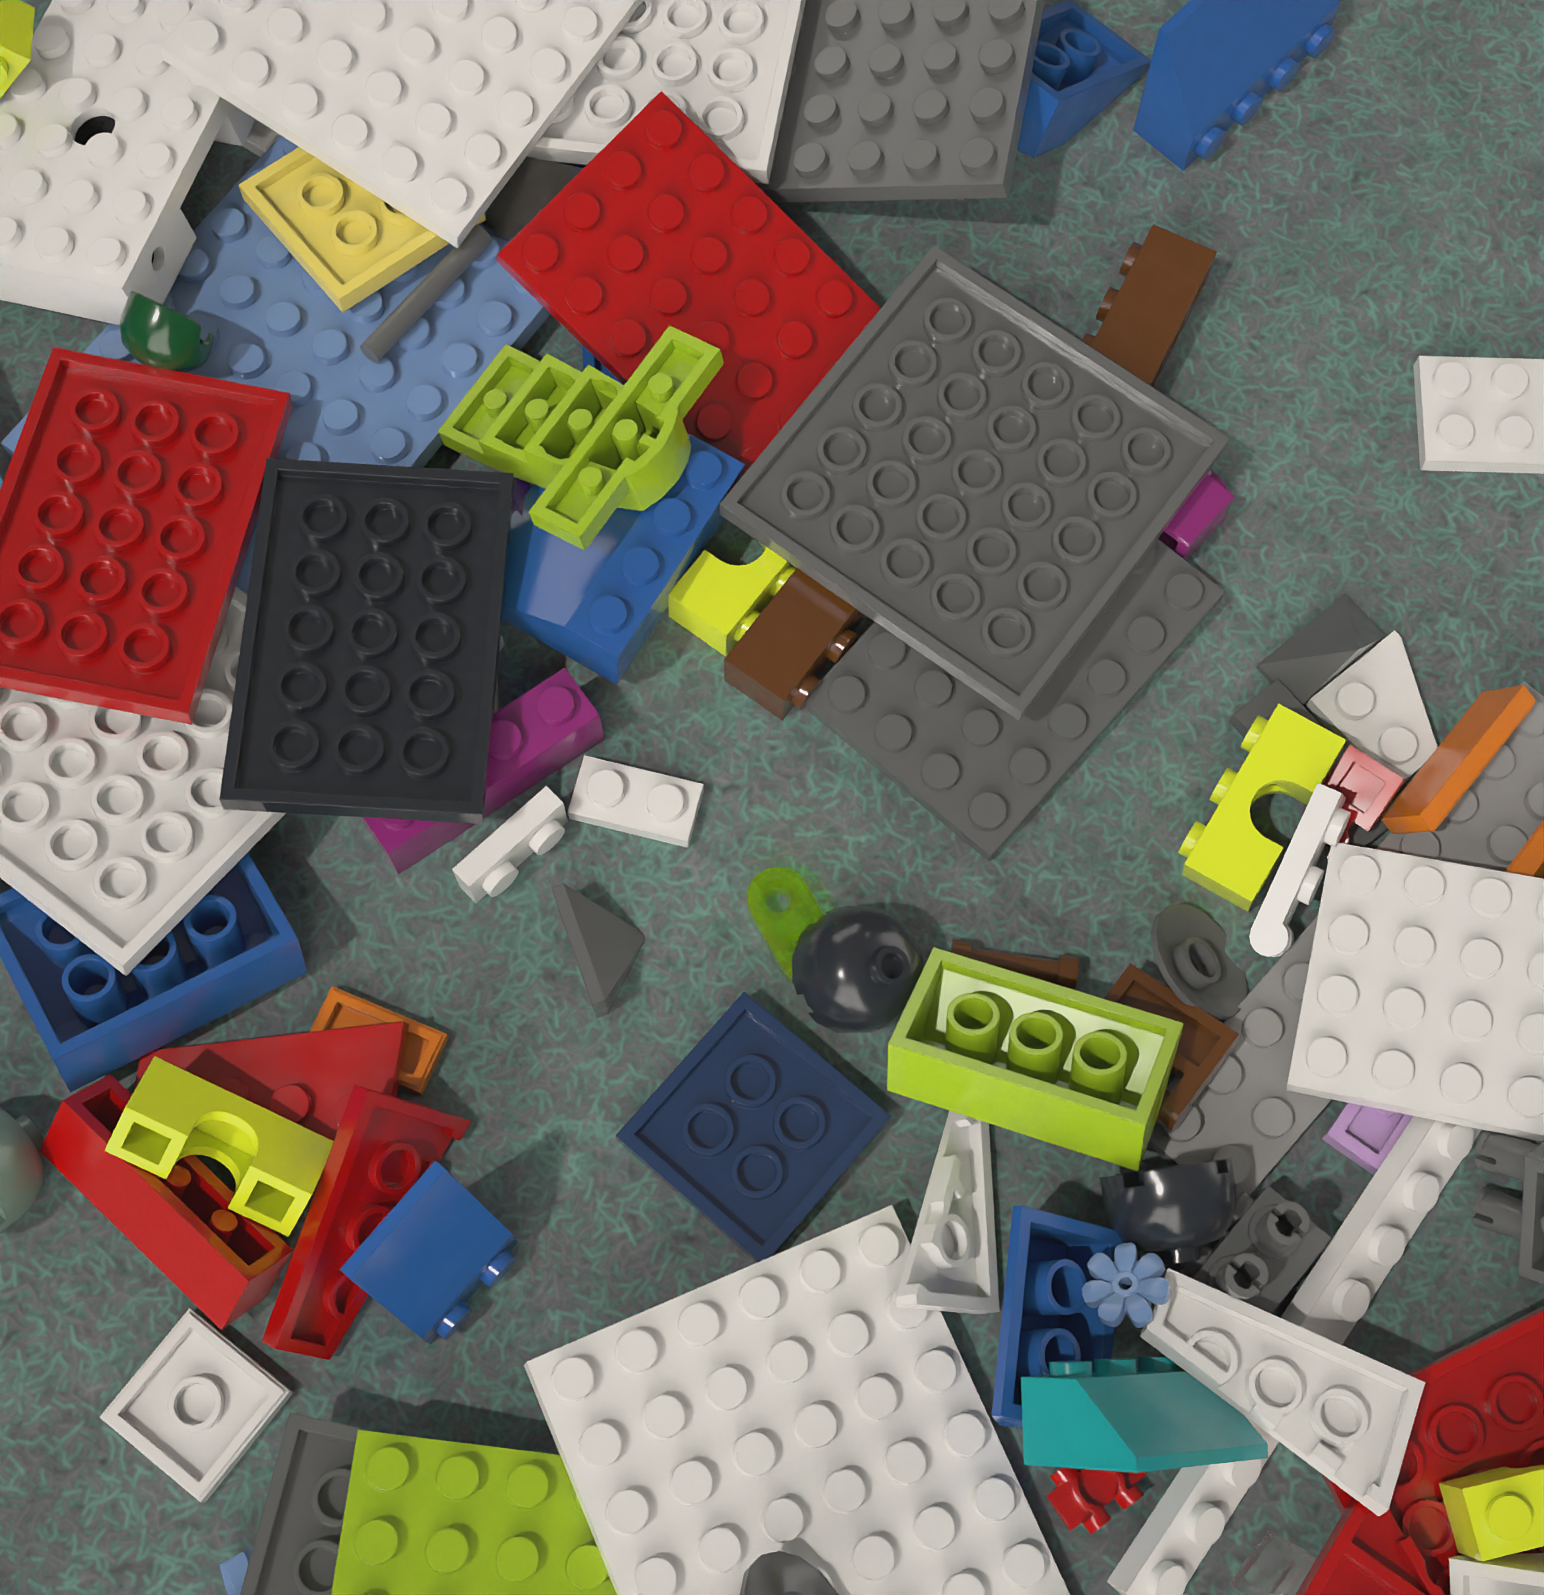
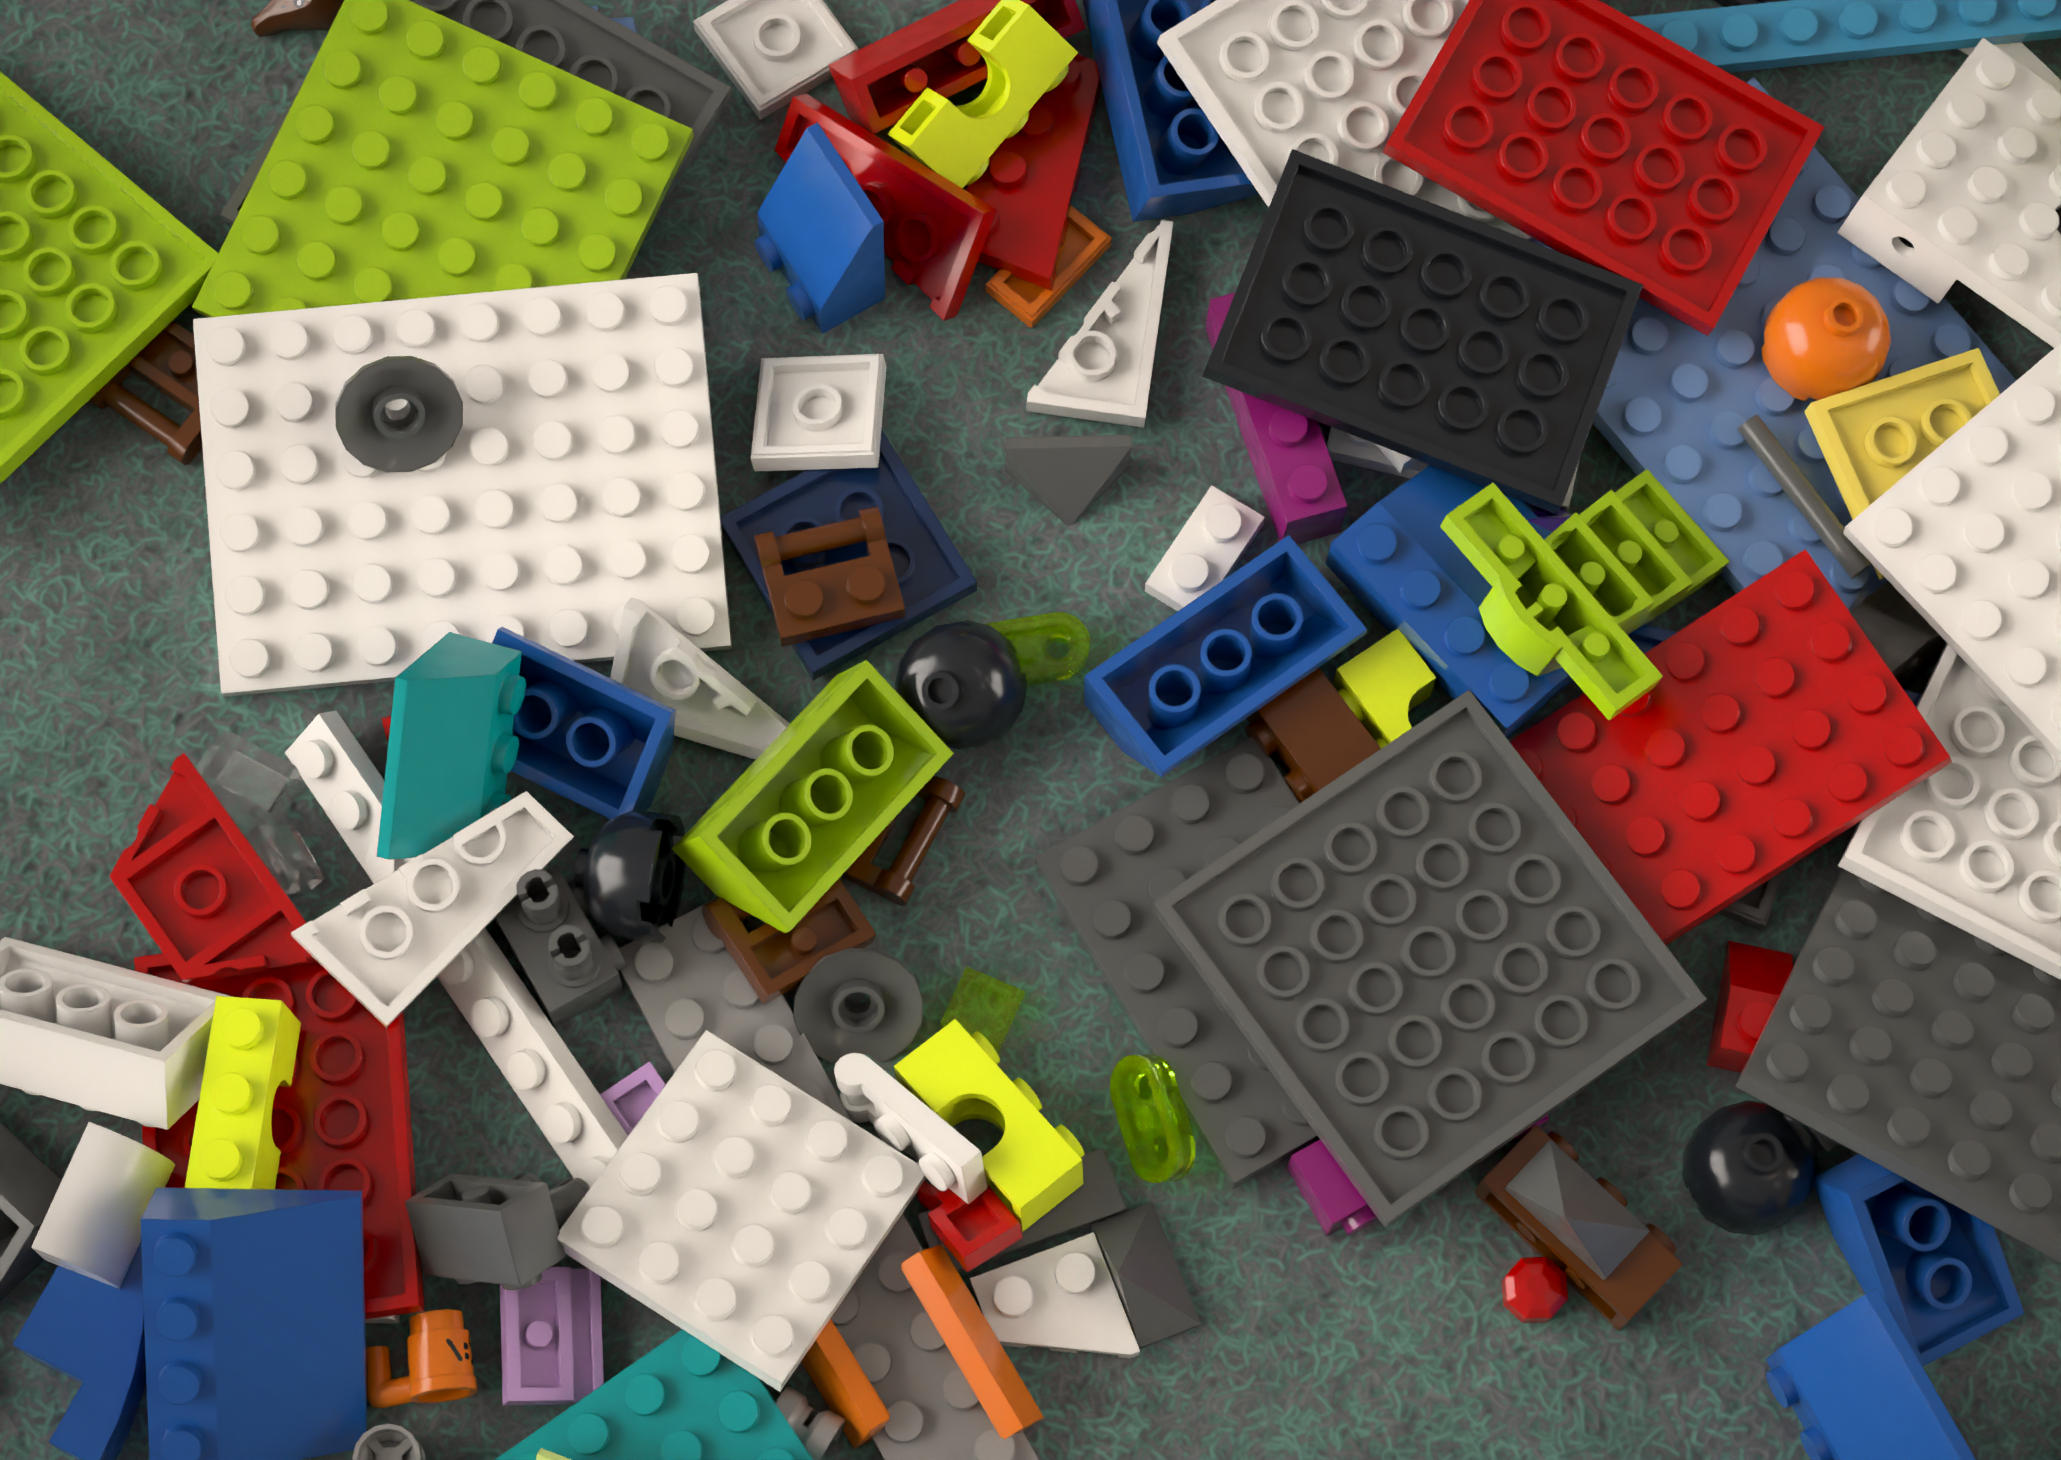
camera: 105 degrees right, 0 degrees up
(162, 335) = (1810, 229): dark green hair -> none
(266, 307) = (1825, 338): none -> orange cylinder
(460, 945) = (1110, 360): none -> white wing
(494, 862) = (1201, 443): white plate -> none
(615, 1205) = (819, 412): none -> white tile
(754, 734) = (1220, 658): none -> blue slope
(810, 1117) = (835, 595): none -> reddish brown plate
(896, 236) = (1745, 1000): none -> red slope
(1042, 217) = (1750, 1167): none -> black cylinder
(1126, 1286) = (571, 791): medium blue plant -> none
(1144, 310) = (1577, 1209): none -> dark grey slope
(1146, 860) = (984, 1006): none -> clear neon green tile
(1187, 680) = (1154, 1122): none -> clear neon green plate
(1205, 345) = (1534, 1289): none -> red tile

